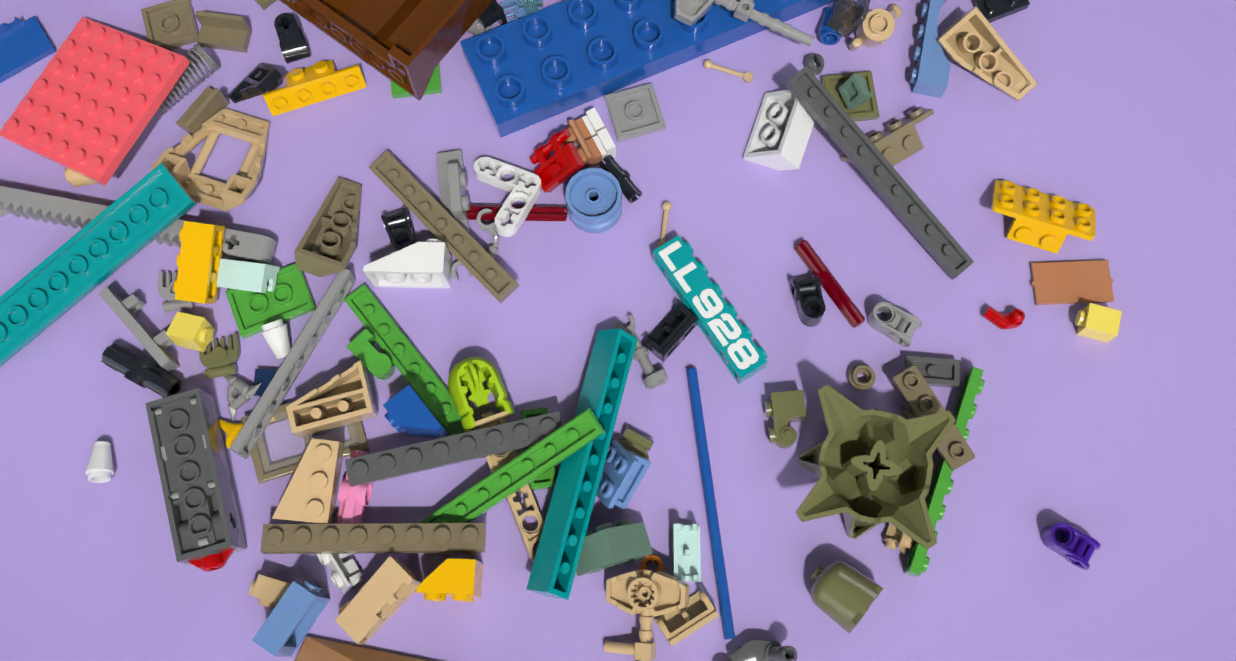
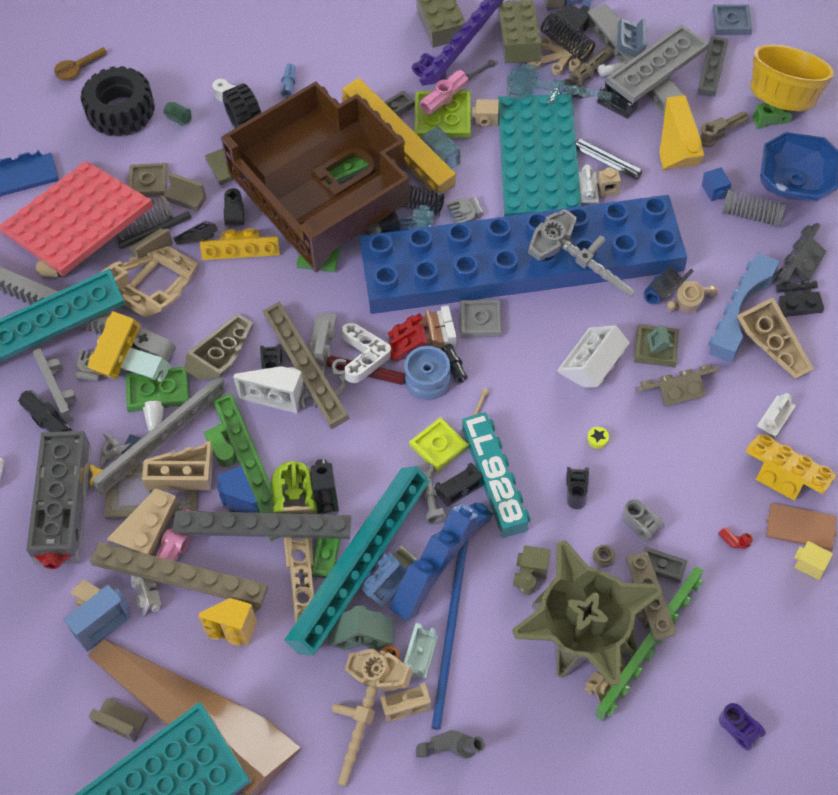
camera: 15 degrees right, 15 degrees down
(189, 99) = (166, 224): none -> pearl dark grey bar
(190, 331) = (90, 395): light yellow brick -> none
(219, 359) = (104, 422): olive piece -> none
(377, 600) = (167, 622): tan wedge -> none
(513, 377) = (323, 479): none -> black torso
(520, 470) = (309, 551): bright green tile -> none
(631, 287) = (438, 444): none -> neon yellow tile
(677, 434) = (440, 549): none -> blue arch
(747, 76) = (577, 312): tan hinge -> none
(810, 63) = (631, 315): dark grey hinge -> none
(814, 231) = (598, 437): none -> neon yellow tile
(830, 284) = (598, 479): dark red axle -> none
(843, 593) = (538, 713): olive cylinder -> none
(879, 172) = (661, 404): dark grey plate -> none
(1010, 151) = (777, 414): none -> white hinge

